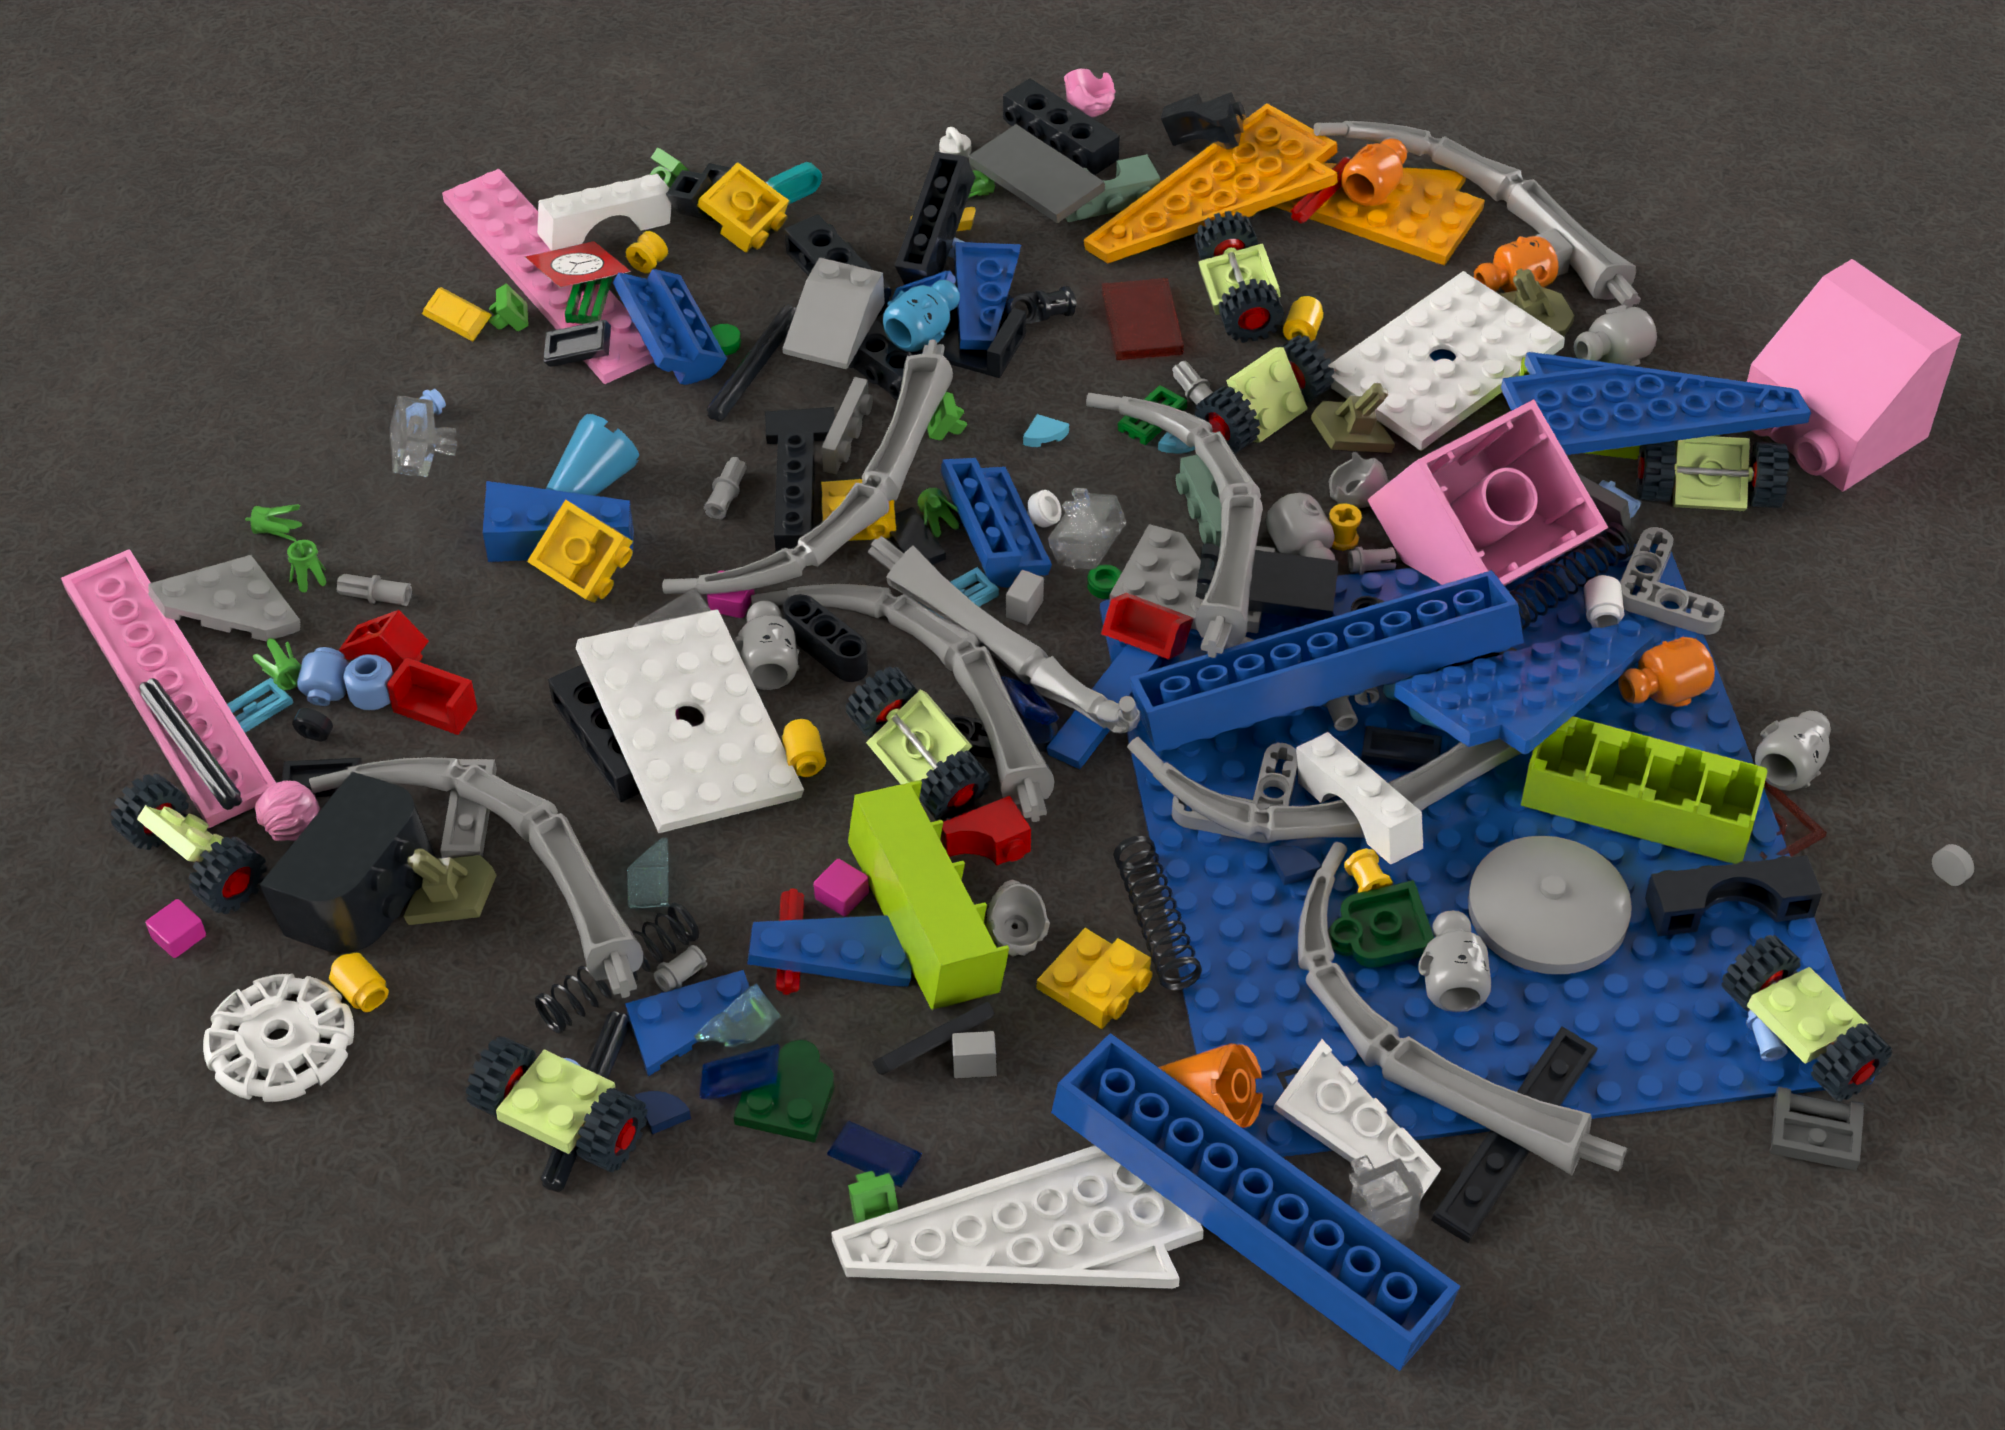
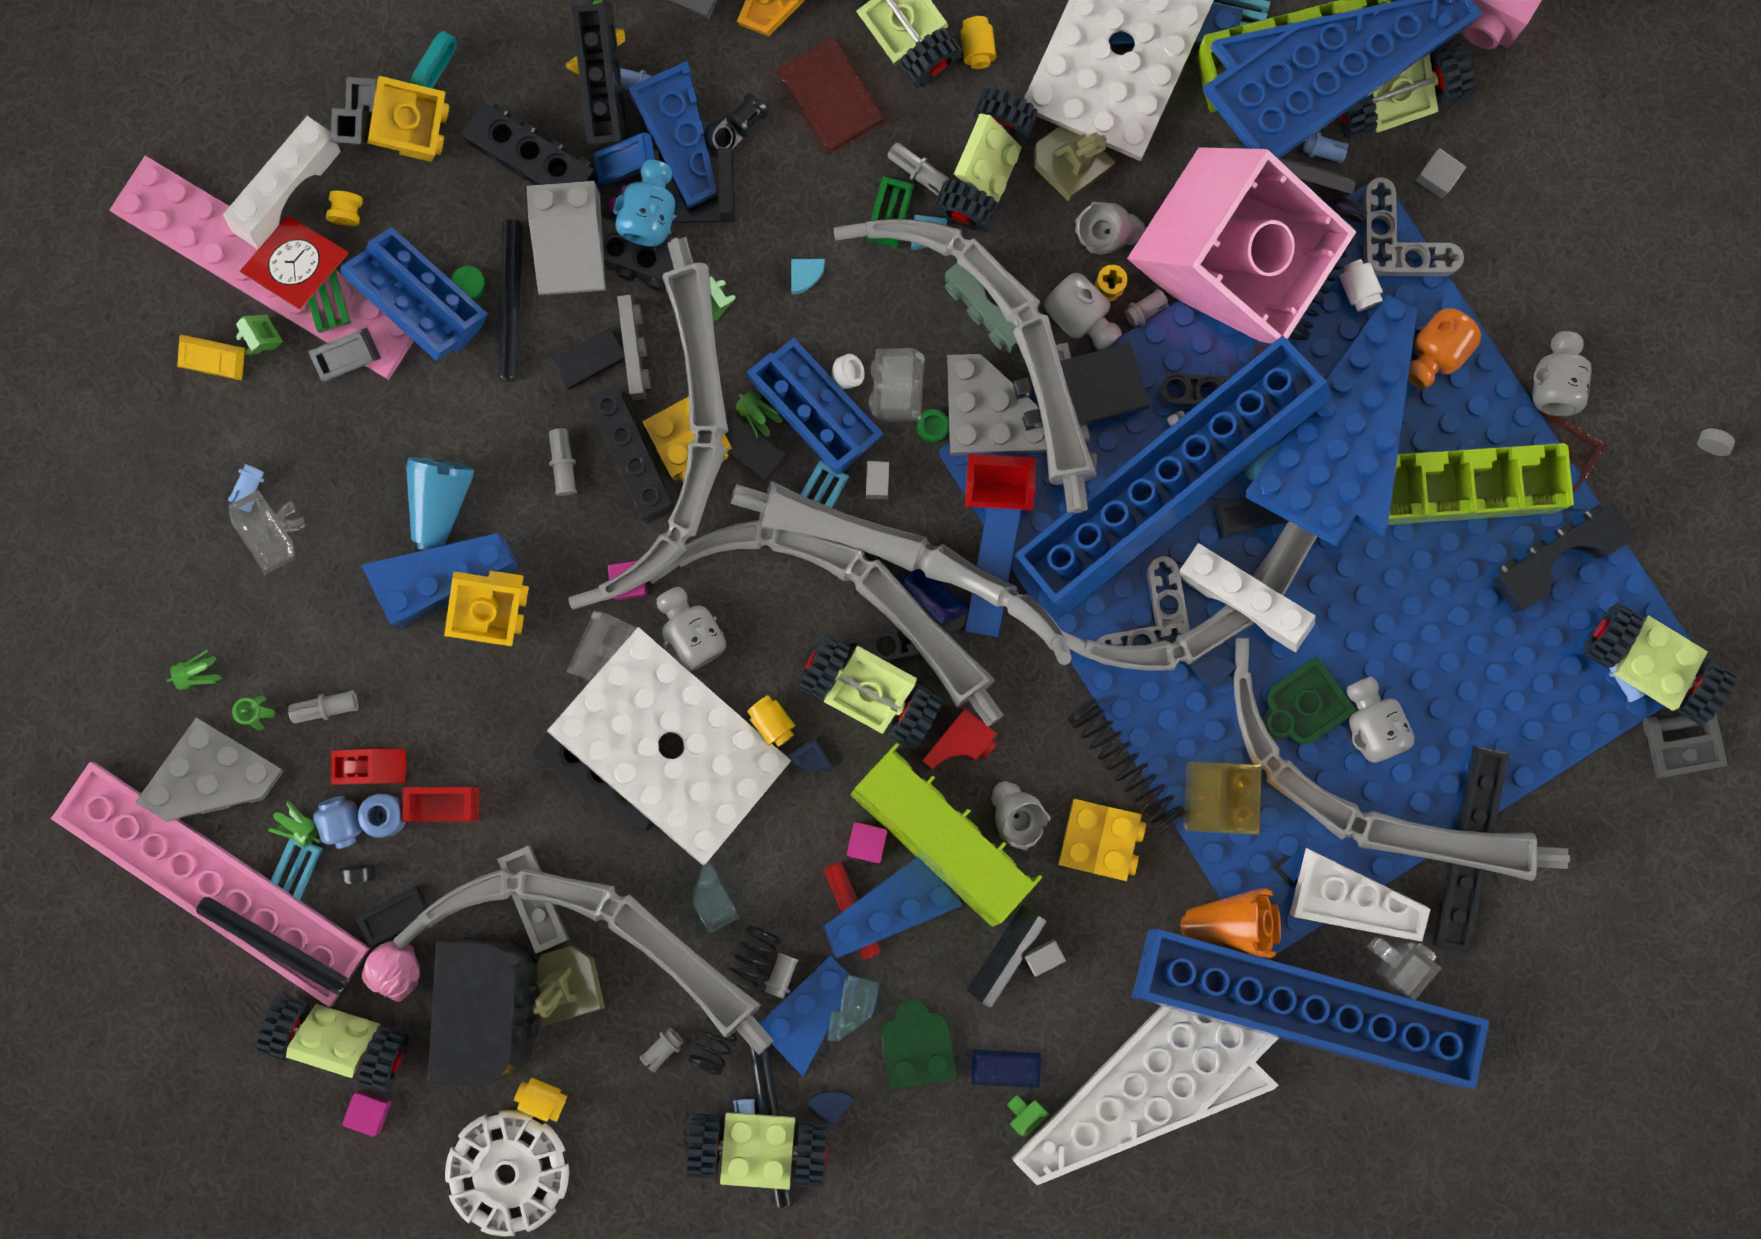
camera: 20 degrees left, 35 degrees up
(513, 987) = (662, 1049): none -> light grey pin
(668, 166) = (309, 86): bright green tile -> none
(740, 1073) = (877, 1054): clear blue tile -> none
(826, 798) = (810, 757): none -> dark blue tile
(827, 638) = (720, 585): black beam -> none
(1243, 965) = (1222, 798): none -> clear yellow slope
(1366, 871) = (1277, 660): yellow bush -> none
(1549, 905) = (1423, 622): light grey dish -> none
(1730, 556) = (1440, 173): none -> light grey piece

